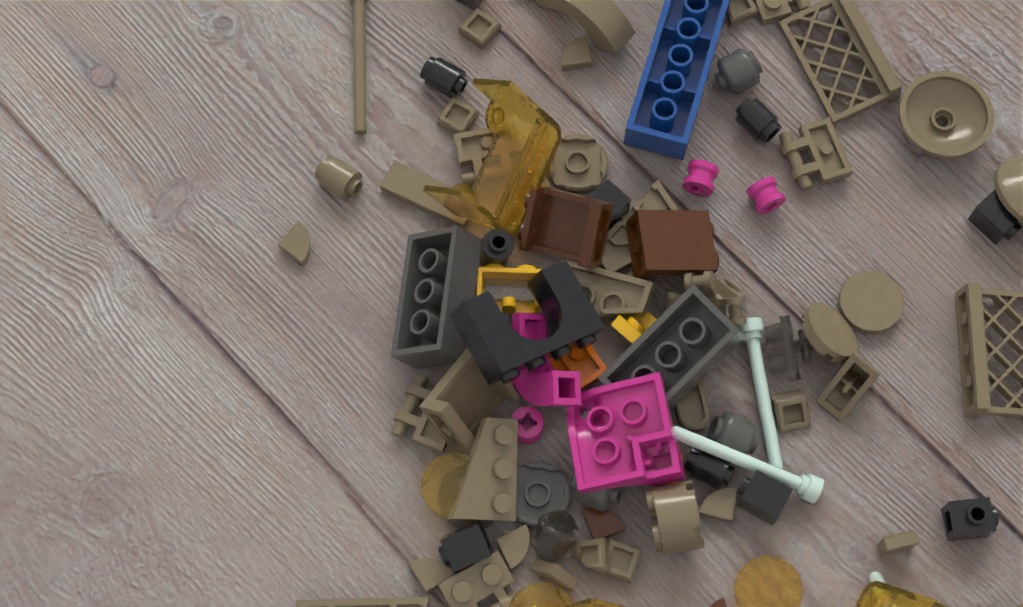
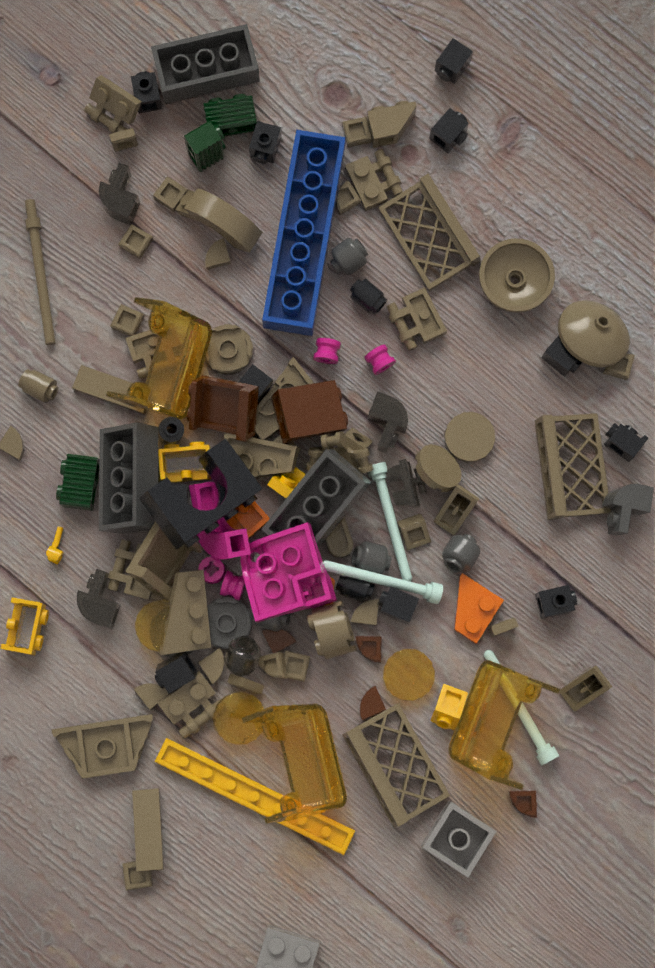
camera: 10 degrees left, 10 degrees up
(281, 466) = (26, 627): none -> yellow window
(330, 382) = (52, 553): none -> yellow hand
(372, 452) = (93, 606): none -> clear smoke brick
(373, 297) = (79, 482): none -> dark green brick
(444, 77) = (111, 289): black brick -> none
(552, 447) = (233, 585): none -> dark pink wheel
(720, 549) = (370, 647): none -> reddish brown tile
(773, 262) = (391, 414): none -> clear smoke brick
(849, 442) = (461, 553): none -> dark grey head
(861, 516) = (474, 608): none -> orange wing

